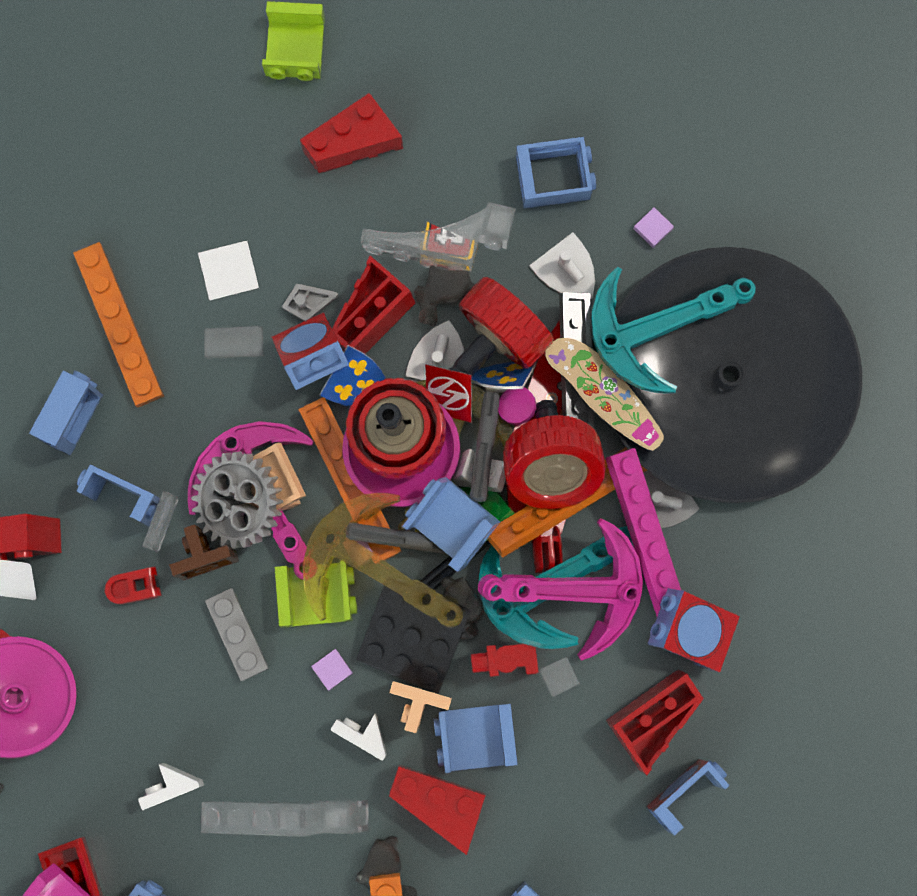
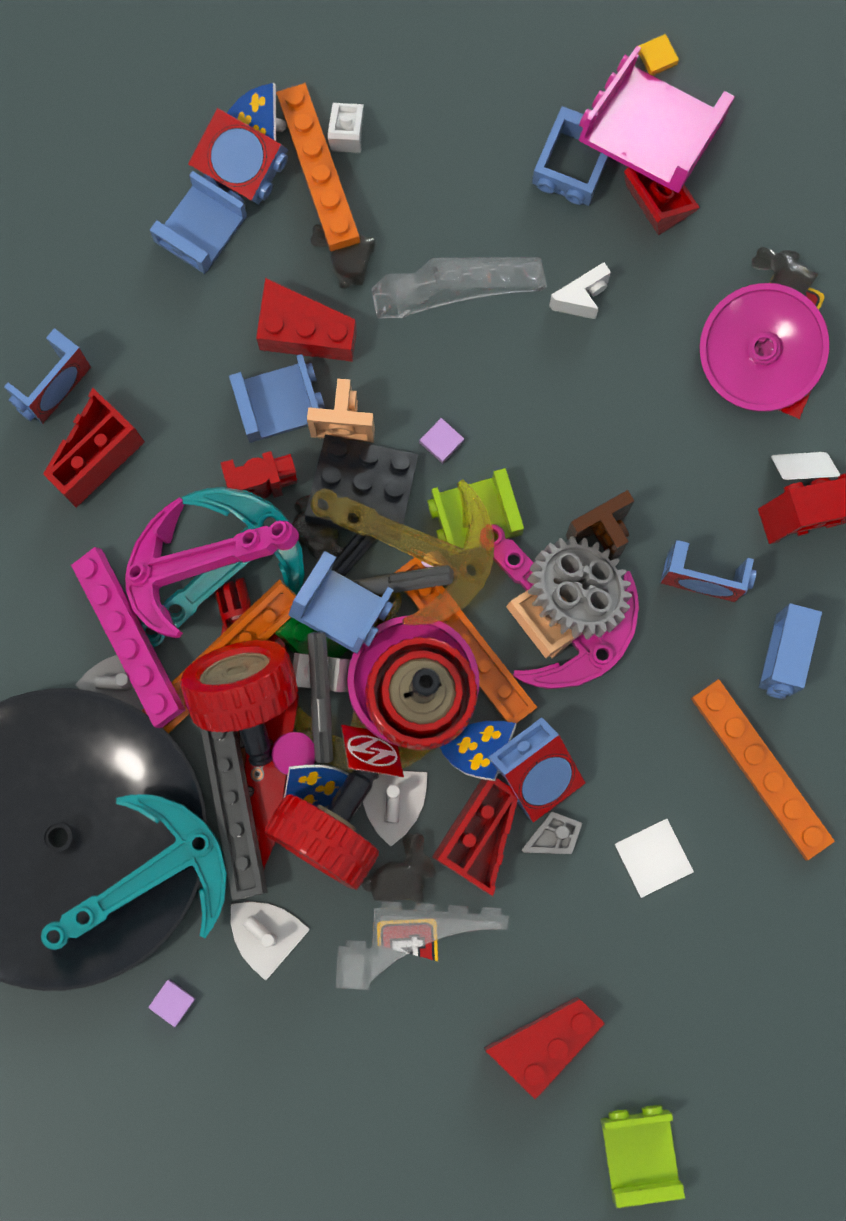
camera: 170 degrees right, 0 degrees up
(123, 590) = (681, 480): red plate -> none
(160, 521) = (658, 557): clear tile -> none
(234, 342) = (627, 773): clear tile -> none
(236, 634) = (550, 458): light grey plate -> none
(370, 740) = (388, 374): white slope -> none
(552, 149) = (258, 1045): medium blue window -> none
(559, 676) = (200, 475): clear tile -> none
(604, 391) = (198, 786): tan sticker -> none
(693, 629) = (63, 544): panel -> none

